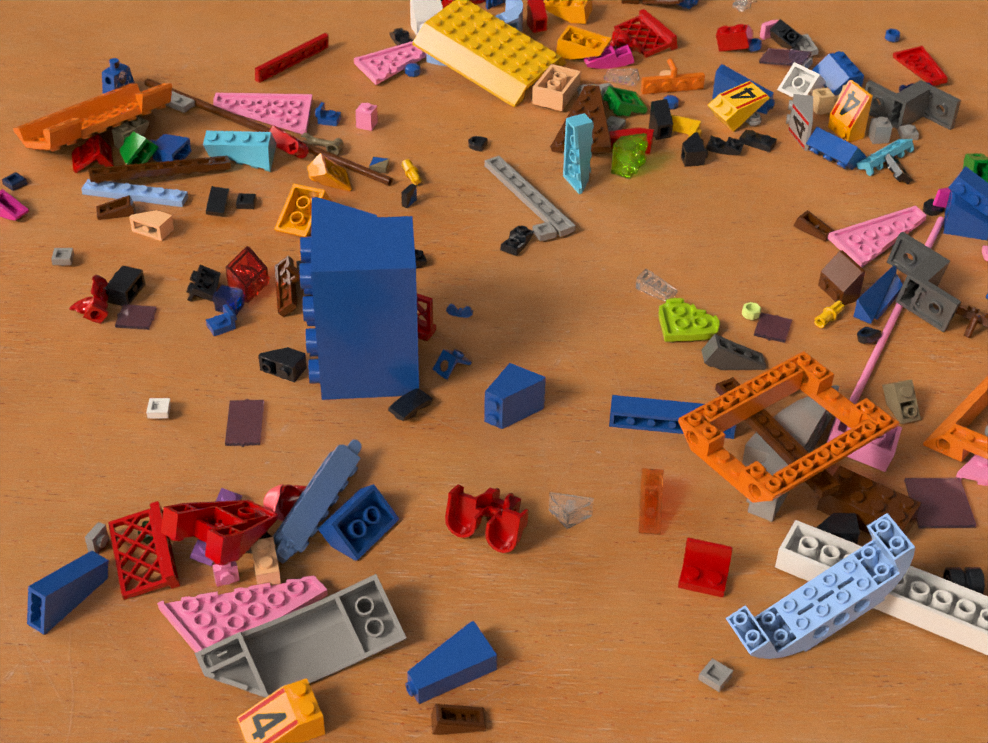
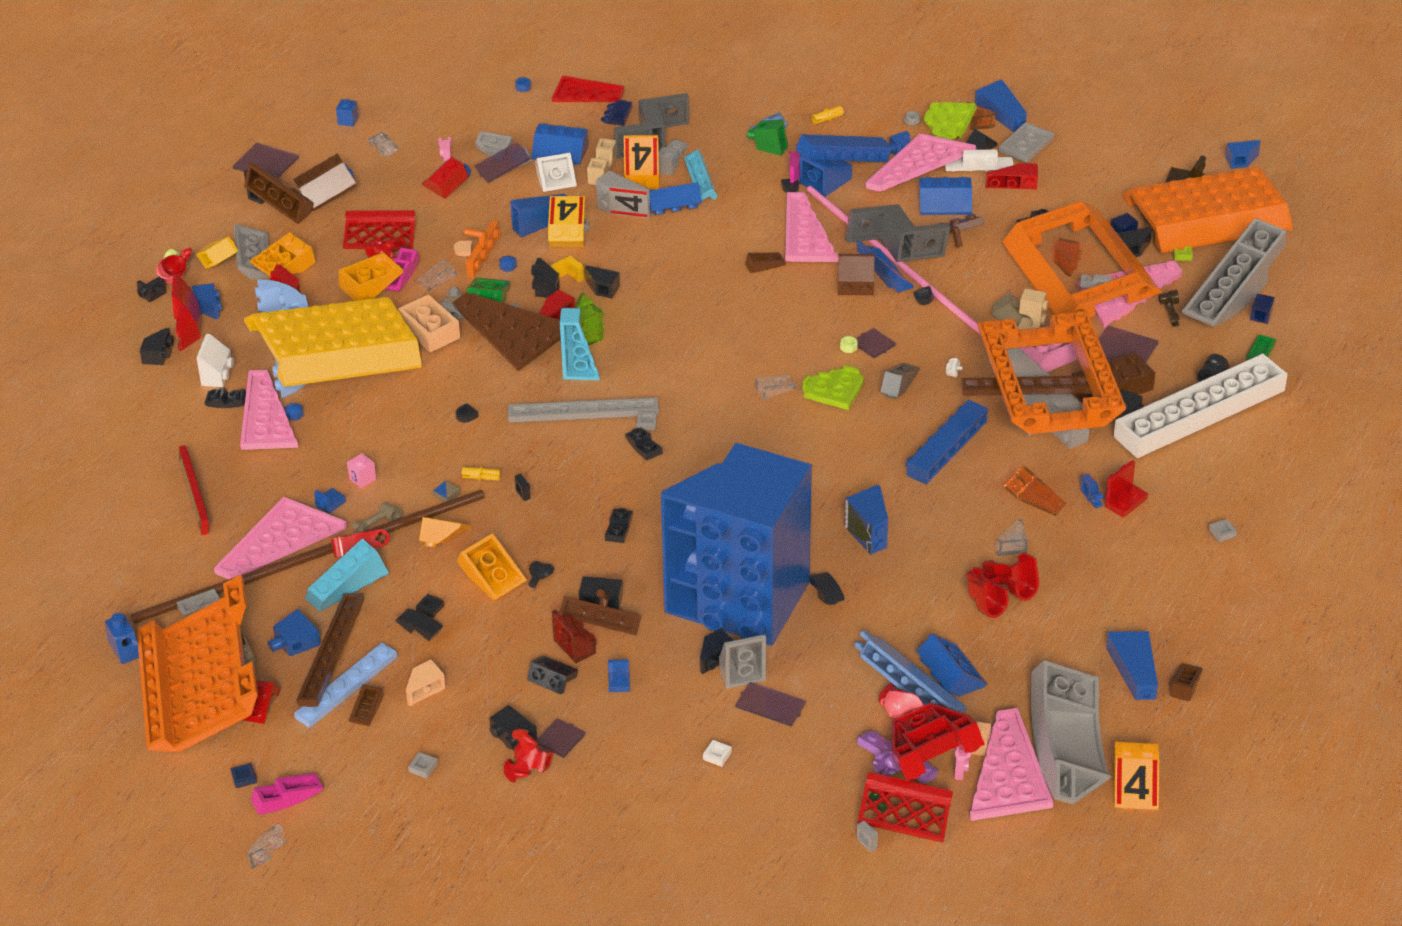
camera: 60 degrees left, 0 degrees up
(64, 590) = (924, 869): blue slope -> none
(137, 149) = (283, 655): green torso -> none
(228, 295) = (592, 661): clear blue brick -> none
(267, 380) = (743, 661): none -> light grey slope
(679, 549) = (1090, 490): none -> blue plate
(731, 147) = (609, 259): black slope -> none
(757, 140) = (614, 238): black plate -> none
(785, 35) = (474, 145): black slope -> none
(829, 314) = (884, 304): yellow axle -> none
(830, 598) = (1205, 427): light blue slope -> none
(895, 396) = (1033, 304): none -> tan arch
(896, 167) = (734, 180): black plate -> none

